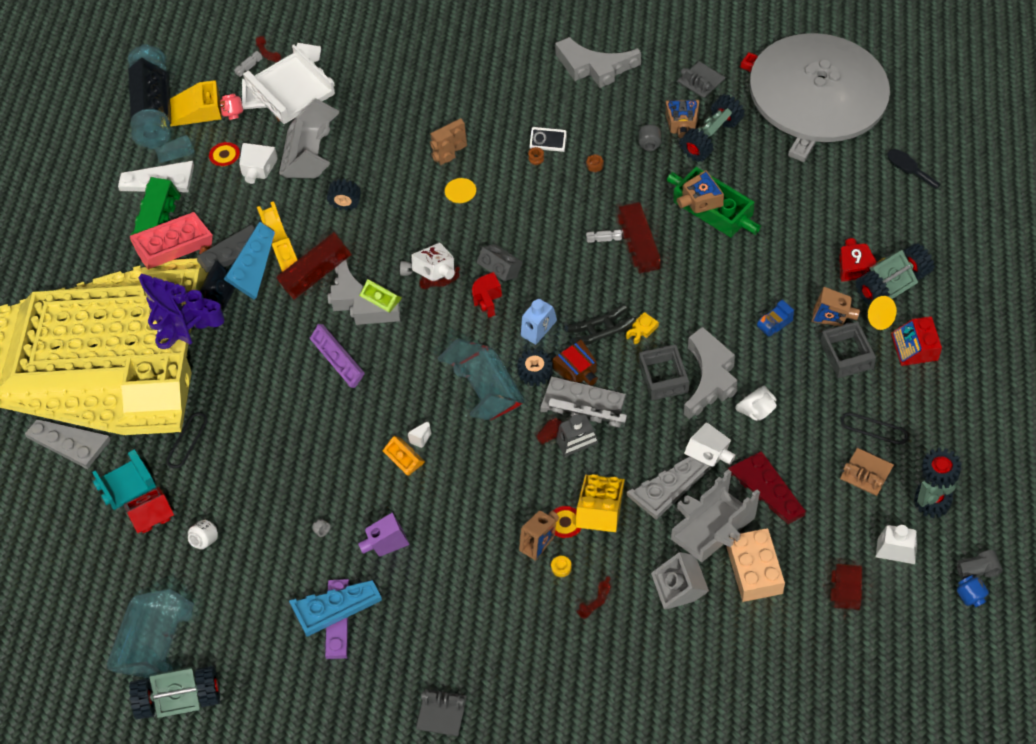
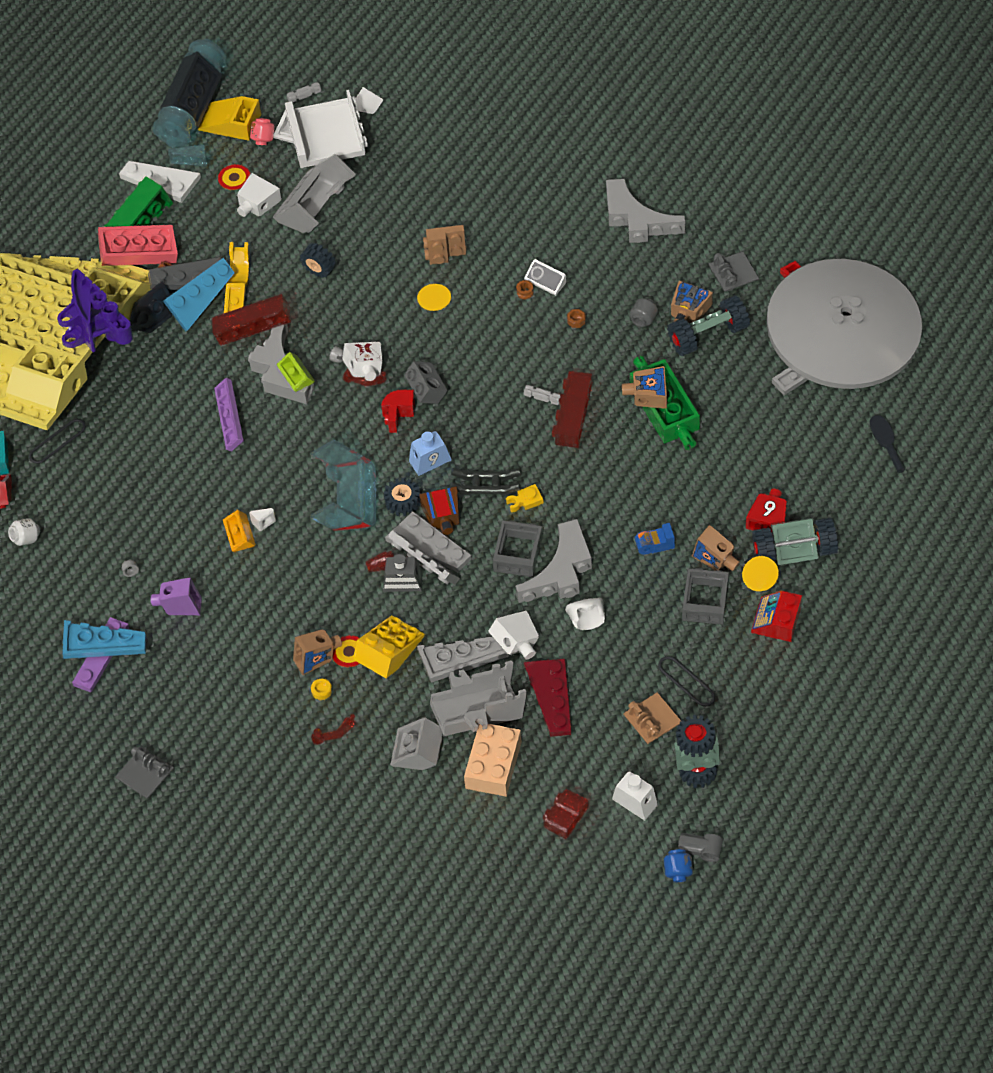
camera: 25 degrees right, 0 degrees up
(260, 42) = (326, 75): clear red piece -> none

